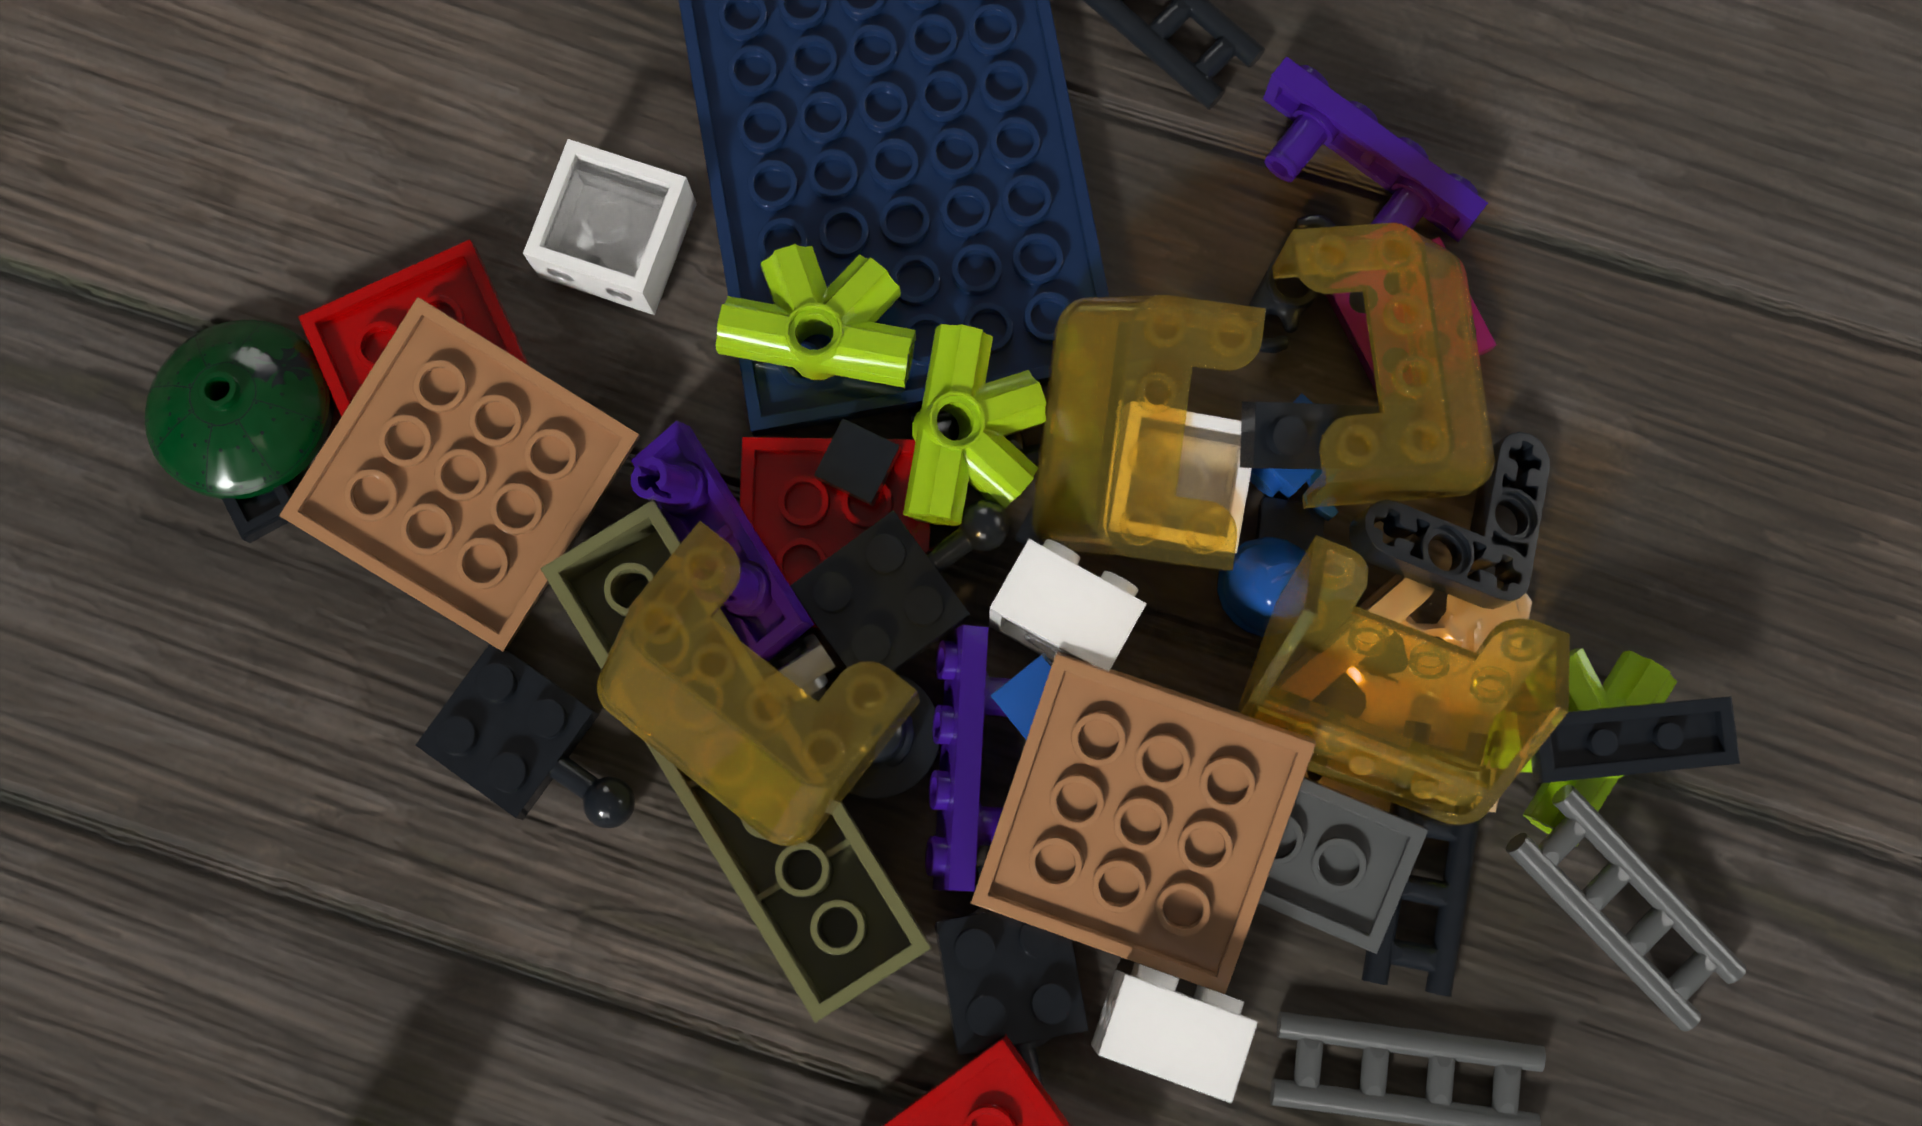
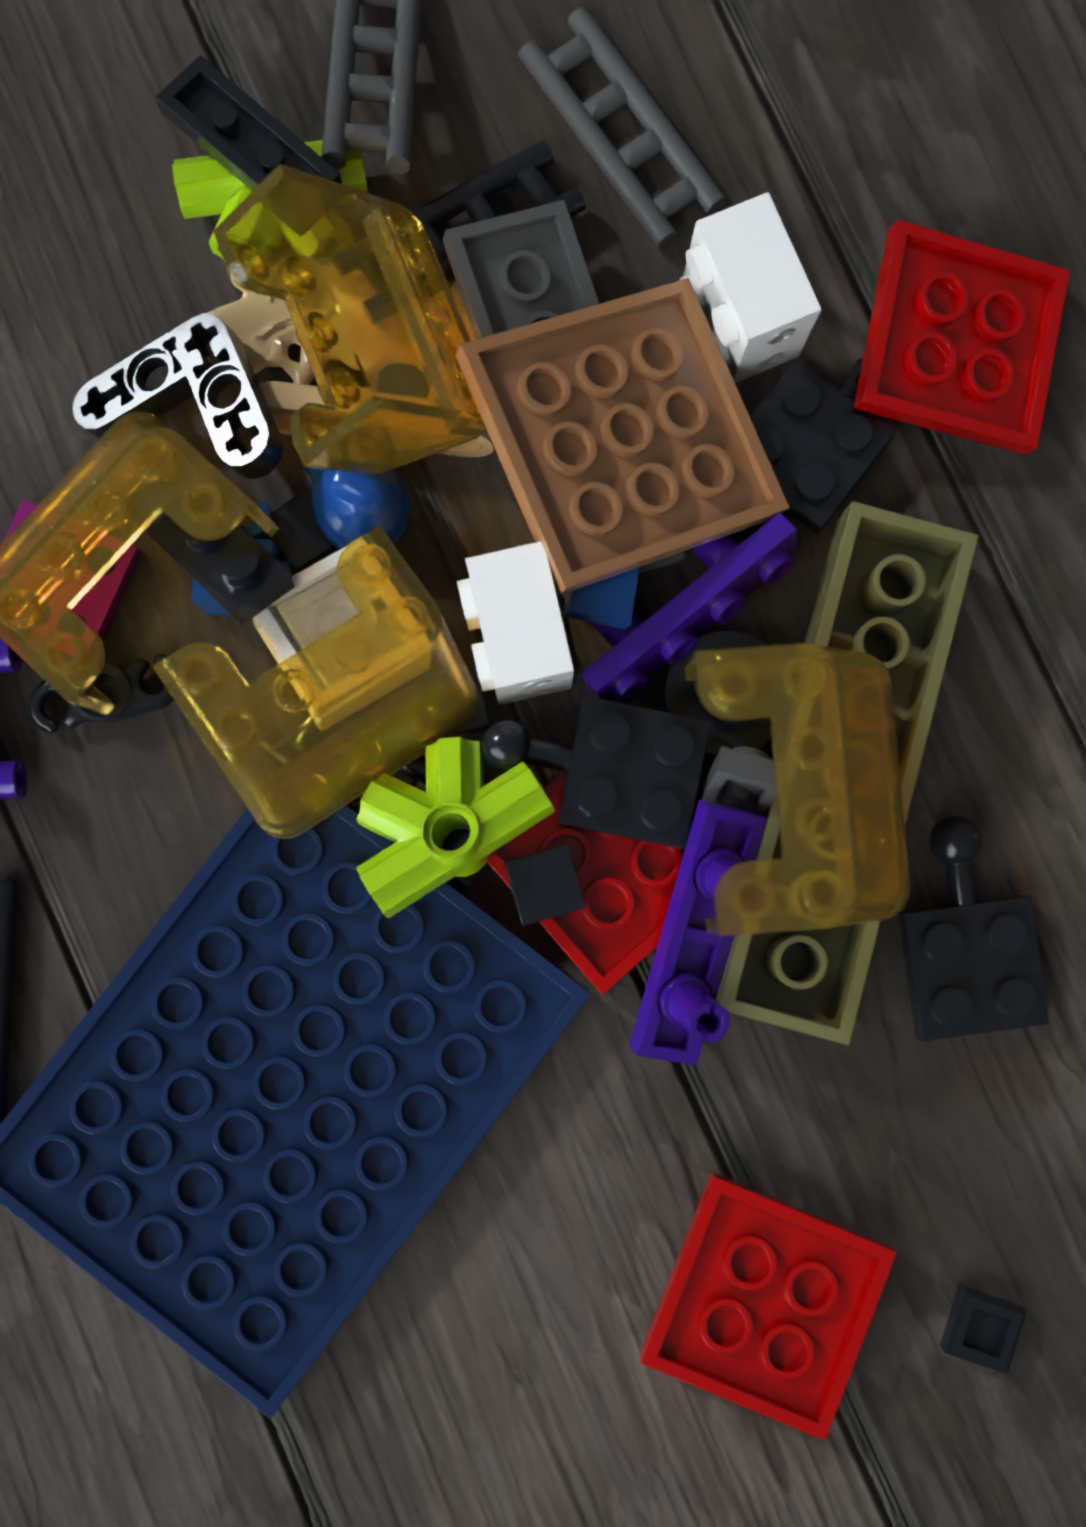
camera: 135 degrees left, 5 degrees up
(255, 434) = (925, 1381): dark green dish -> none
(460, 474) = (829, 1186): medium nougat plate -> none
(610, 226) = (531, 1258): piece -> none
(807, 307) = (459, 1038): lime piece -> none

